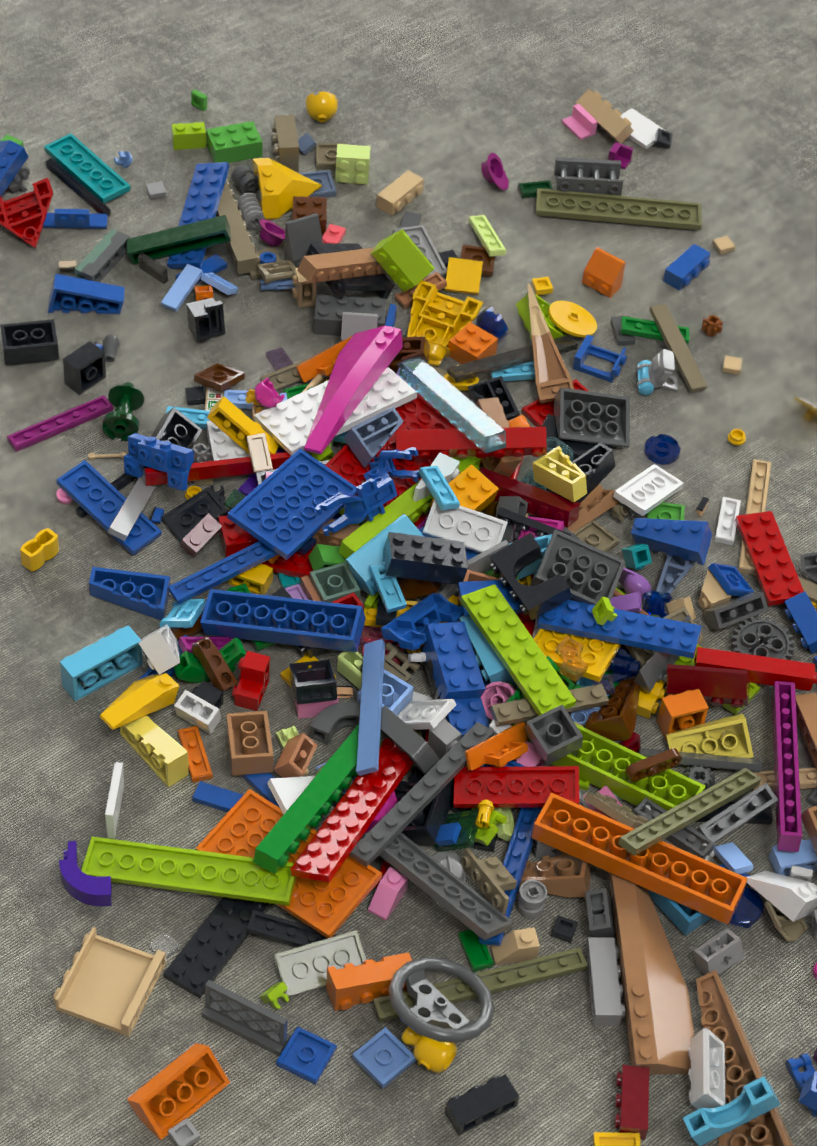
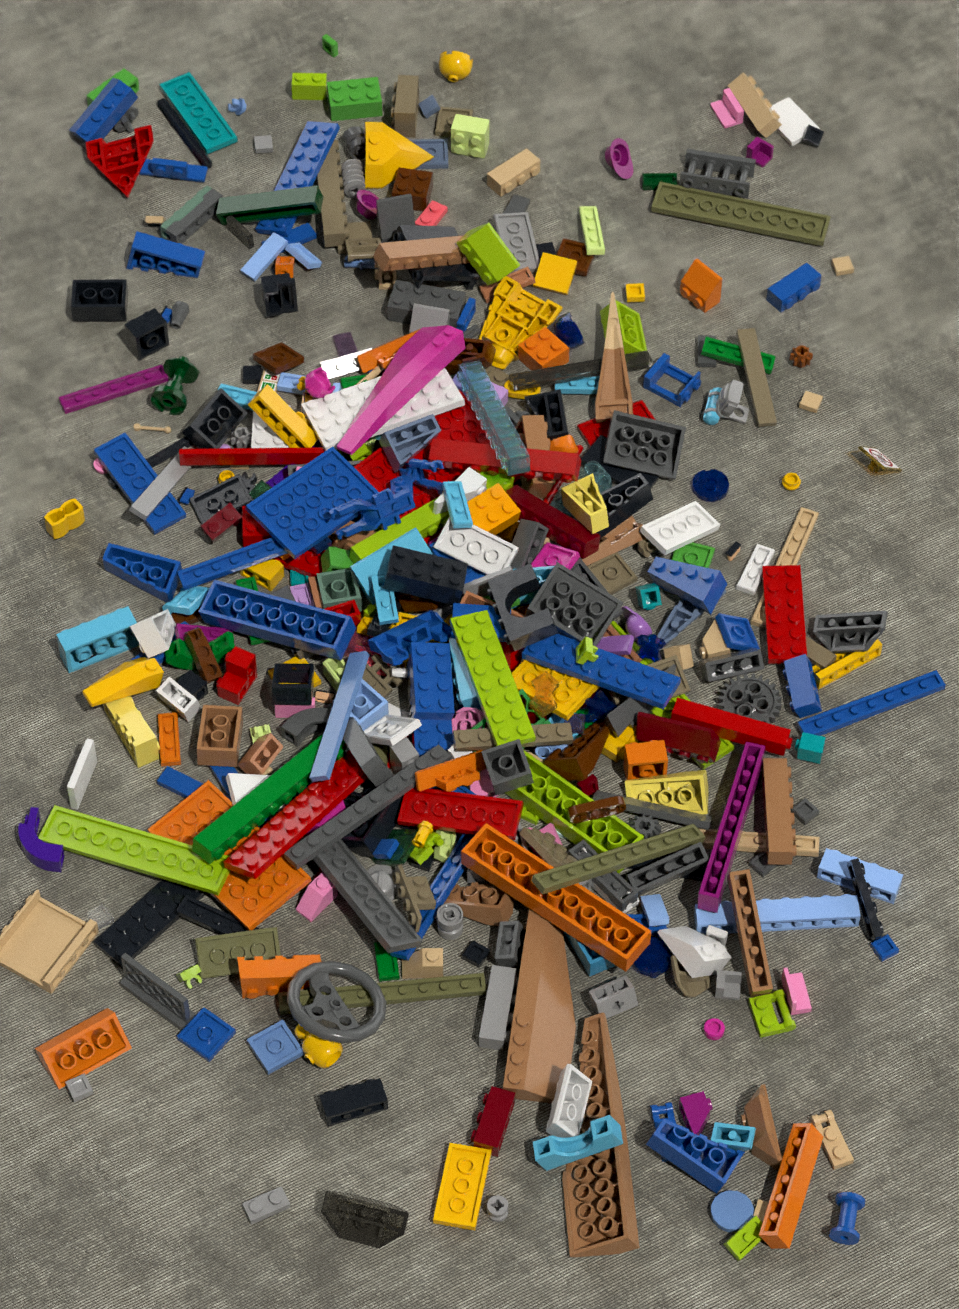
camera: 15 degrees right, 5 degrees up
(159, 456) = (195, 438): blue bracket -> none
(259, 453) = (293, 445): tan tile -> none
(267, 257) = (358, 232): blue tile -> none
(526, 524) = (537, 551): black plate -> none
(572, 318) = (655, 333): yellow piece -> none

